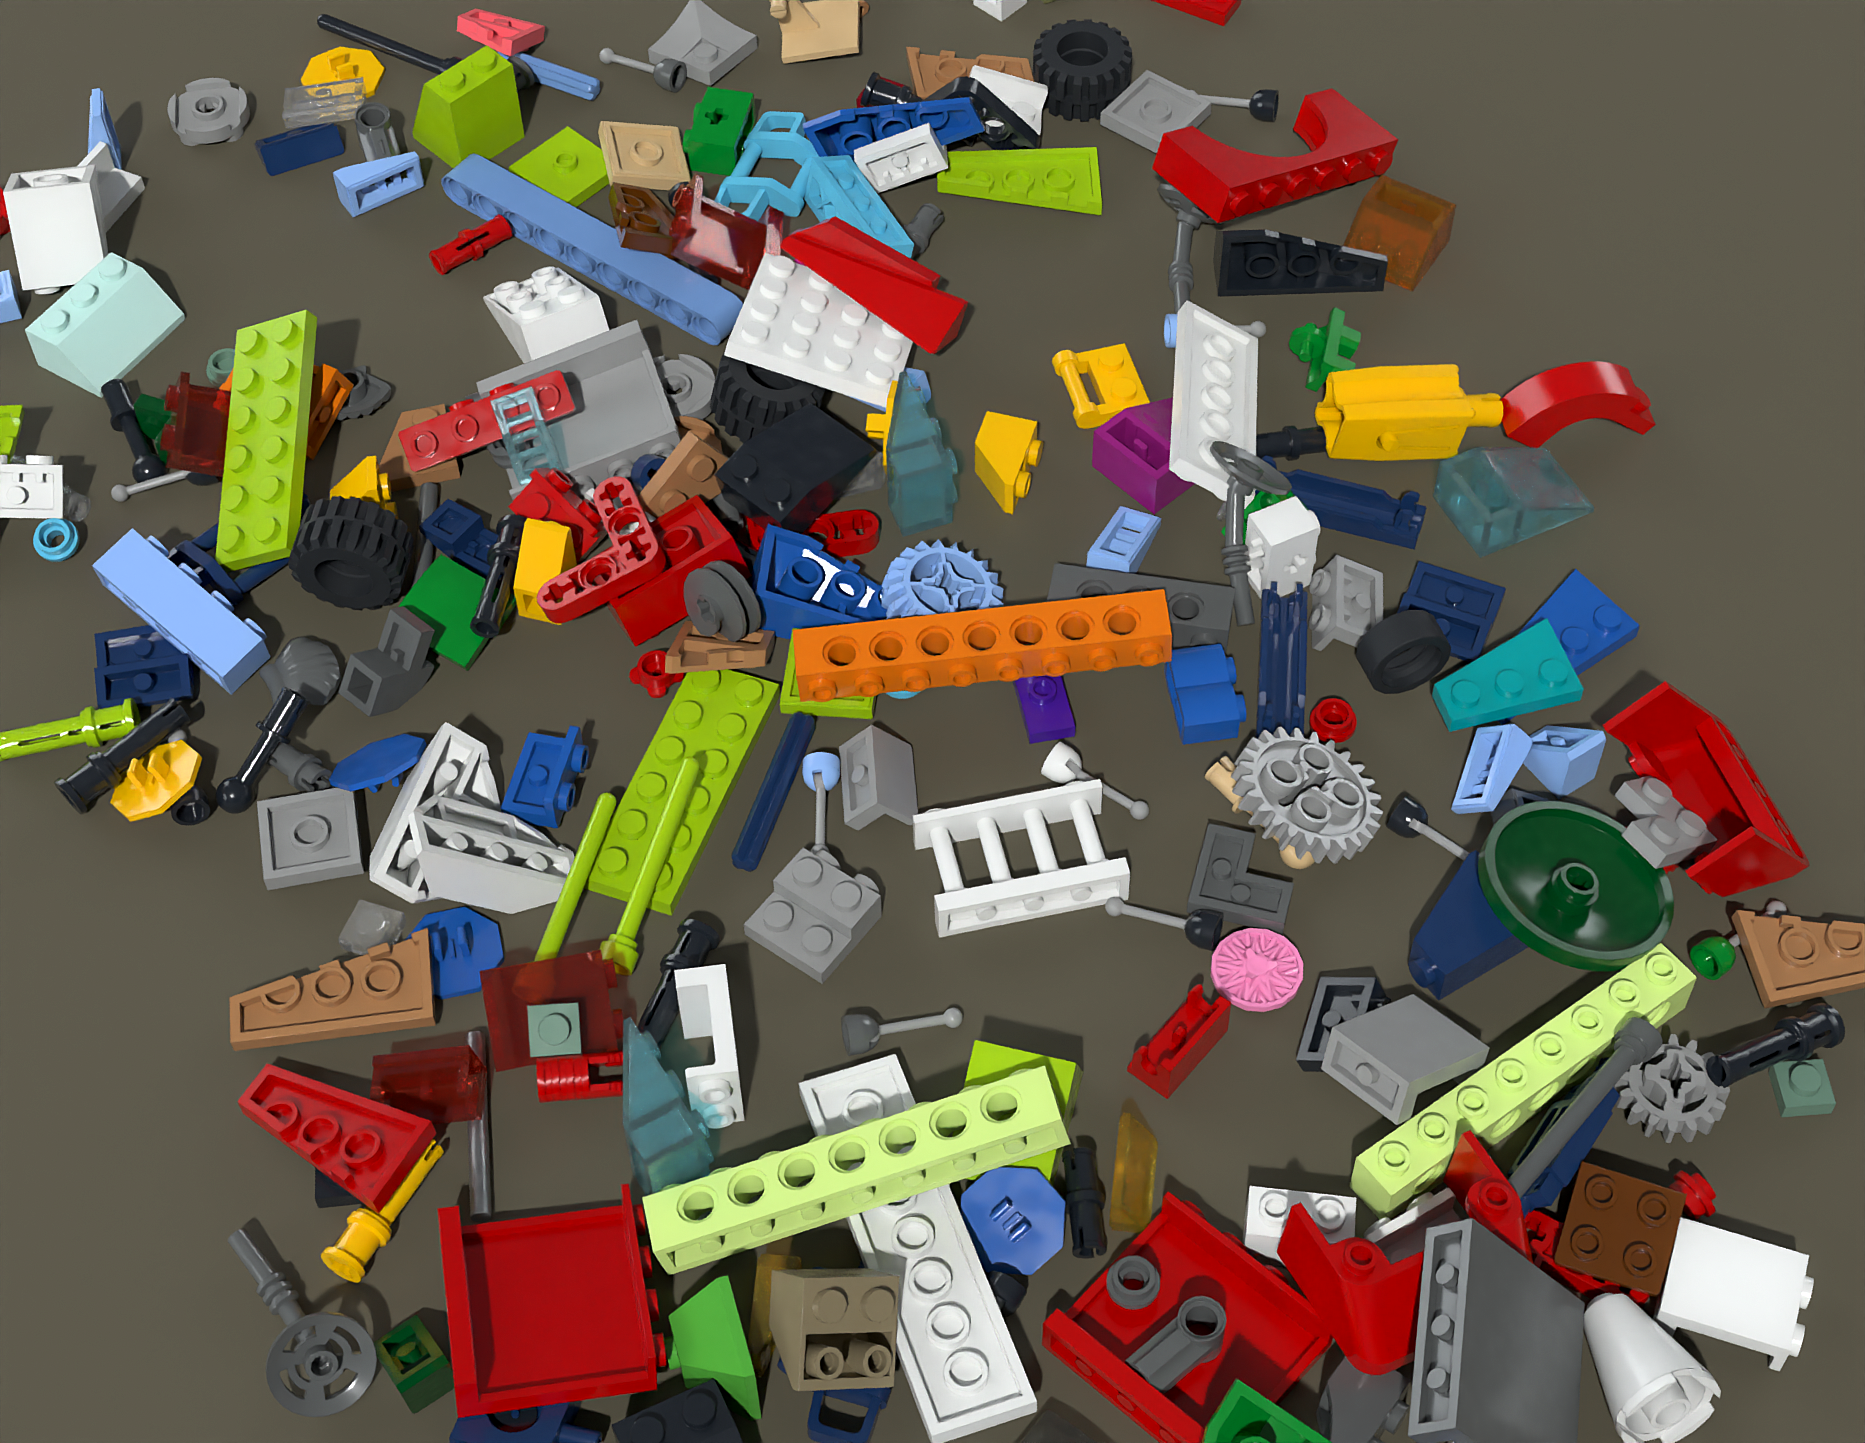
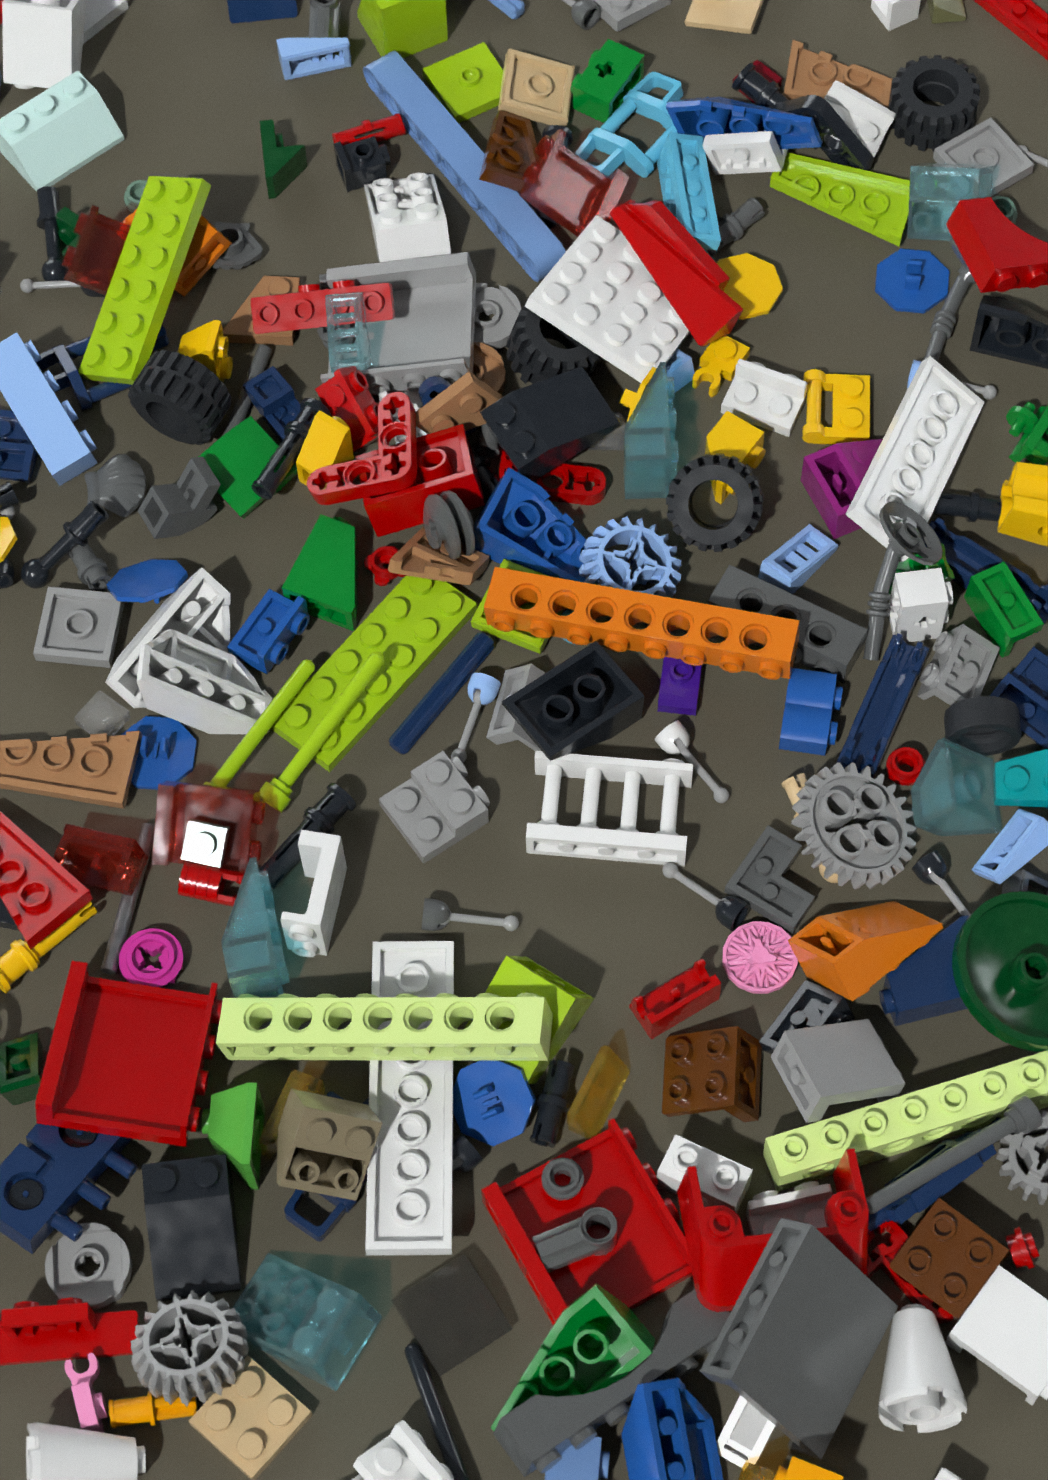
camera: 20 degrees right, 10 degrees up
(380, 294) = (281, 162): none -> dark green slope
(472, 273) = (361, 162): none -> black brick
(526, 1167) = (151, 942): none -> dark pink gear
(594, 696) = (327, 572): none -> green slope
(943, 750) = (577, 703): none -> black slope
(954, 371) = (719, 362): none -> yellow plate
(967, 281) = (751, 284): none -> yellow piece
(1020, 389) = (765, 397): none -> white bracket
(1046, 480) = (696, 530): none -> black tyre
(1127, 151) = (936, 193): none -> clear light blue slope
(1128, 245) = (912, 281): none -> blue piece
(1255, 1111) = (712, 1073): none -> reddish brown bracket
(1369, 529) = (1002, 607): none -> green panel
(1369, 920) = (860, 945): none -> orange slope
(1401, 732) = (955, 793): none -> clear light blue slope

